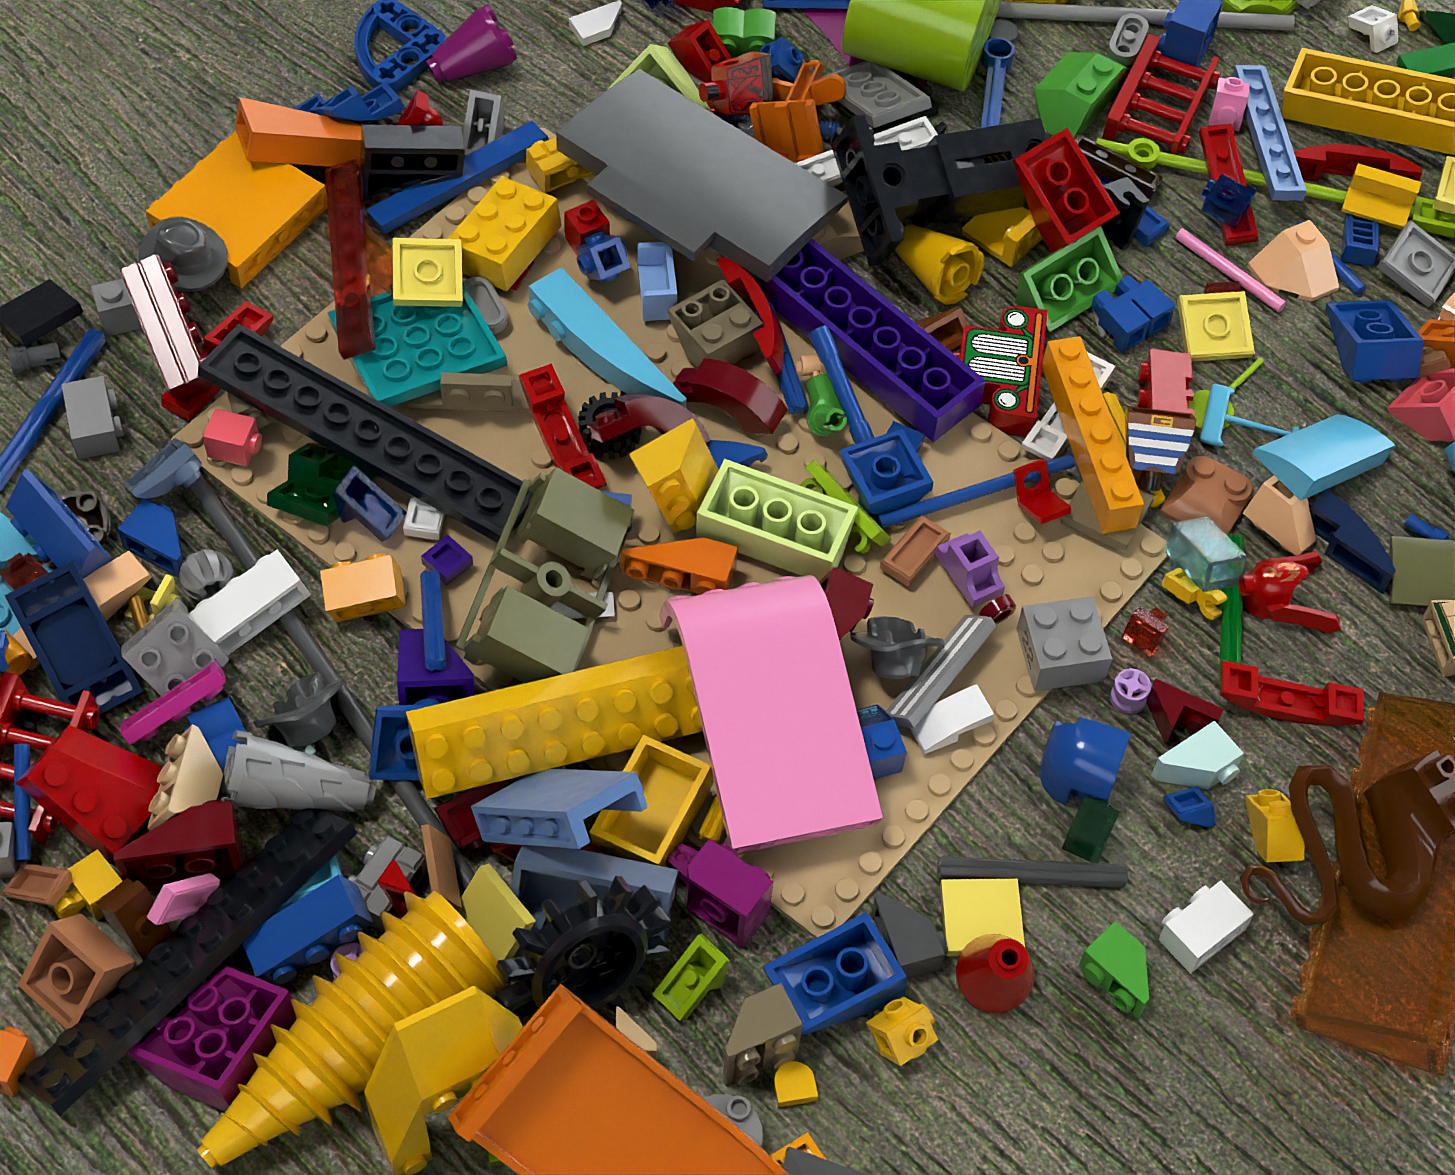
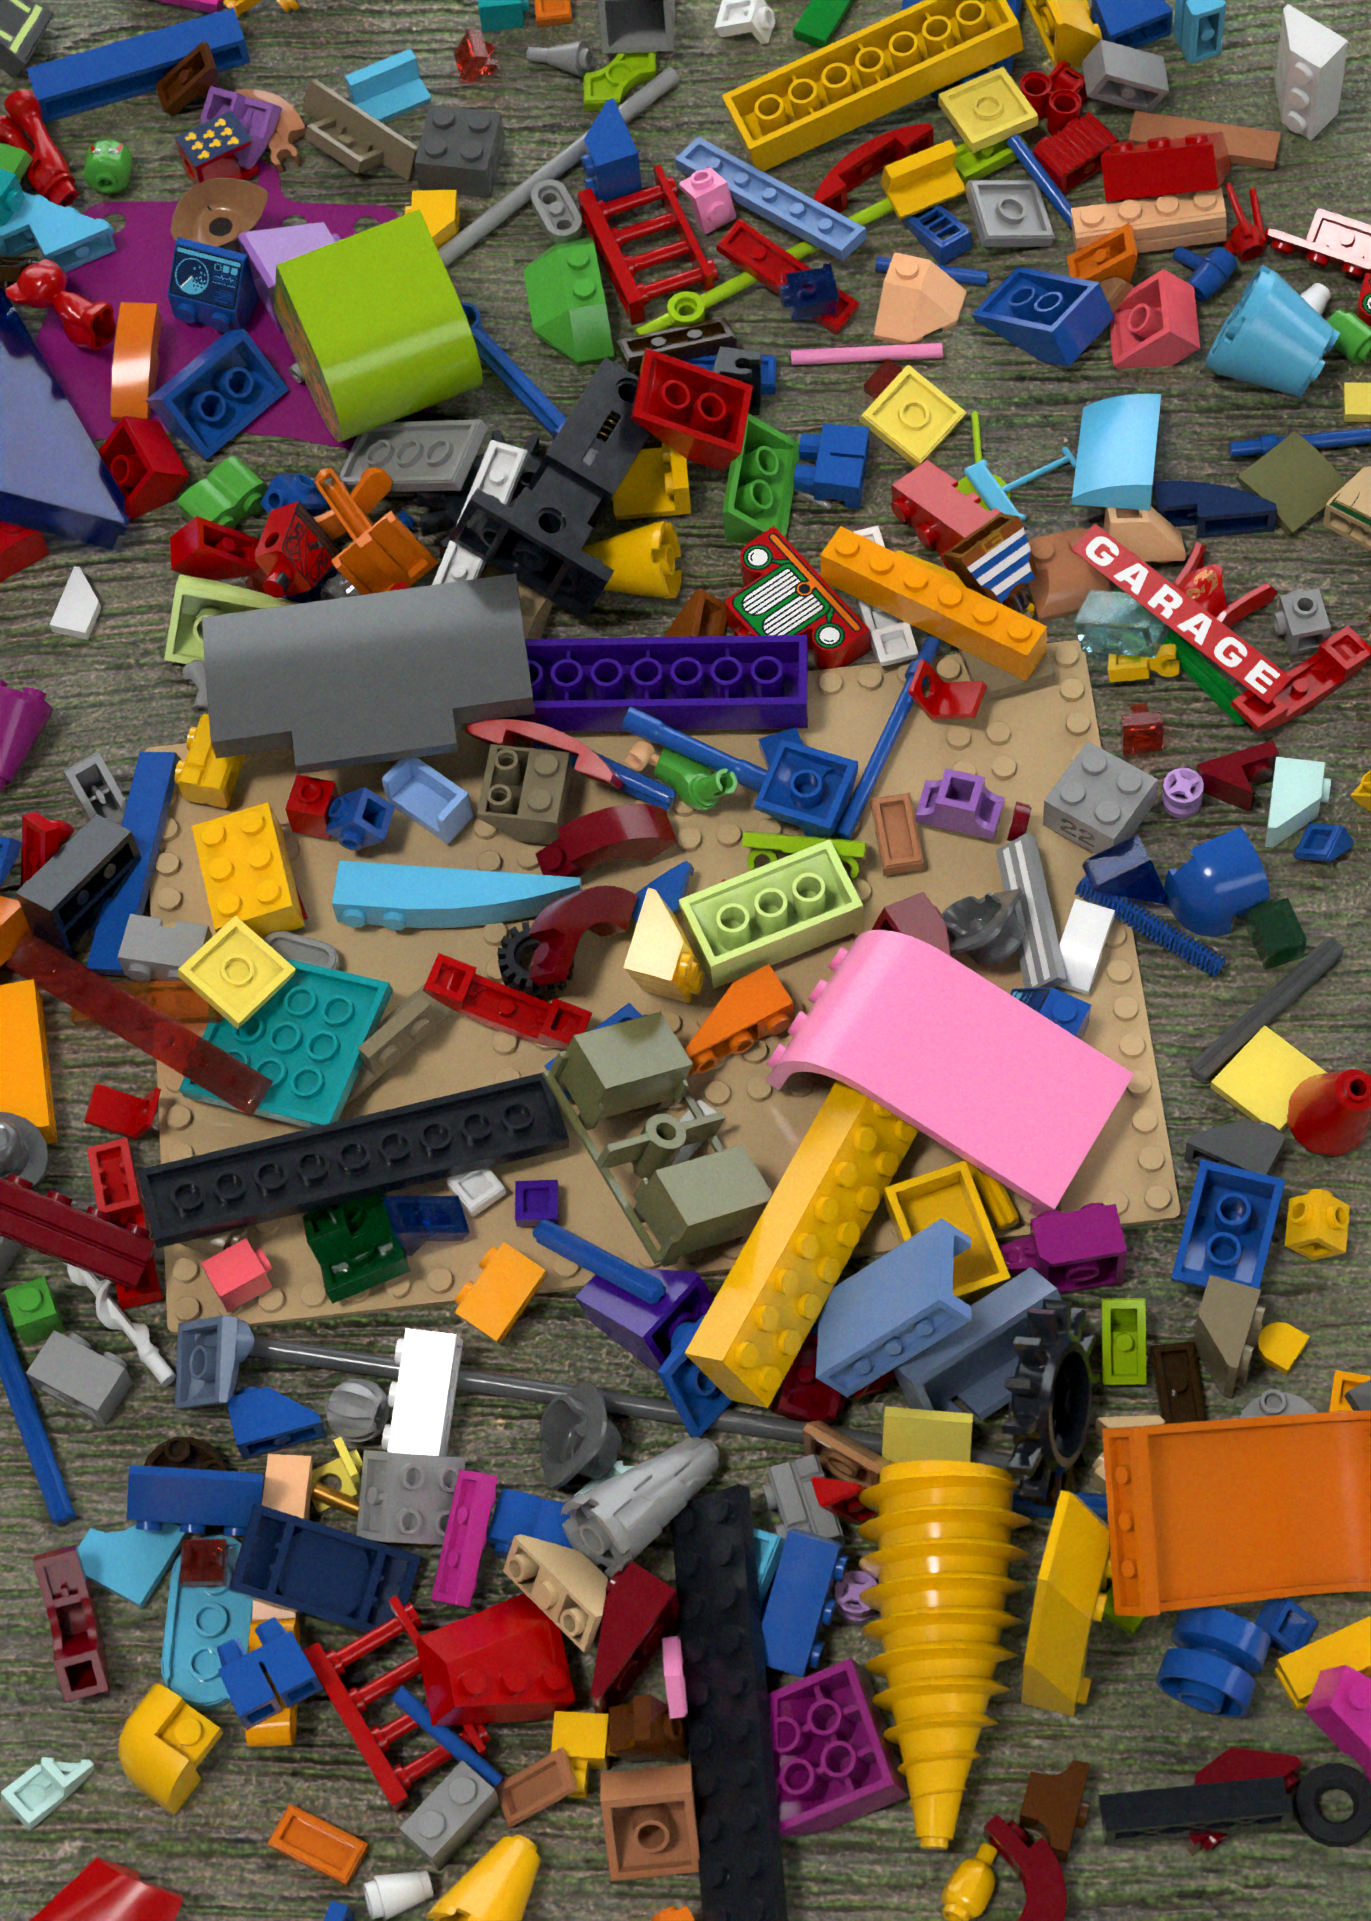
camera: 35 degrees left, 5 degrees up
(112, 358) = (34, 1310): none -> bright green brick
(149, 402) = (115, 1319): none -> white piece
(287, 297) = (121, 1111): none -> red bracket
(407, 220) = (159, 951): none -> light grey brick
(698, 1044) = (1178, 1382): none -> dark brown tile
(1011, 749) = (1154, 928): none -> blue axle
(1031, 700) = (1125, 872): none -> clear blue slope
(1247, 577) = (1181, 613): none -> sticker
(1333, 658) = (1302, 621): none -> light grey brick

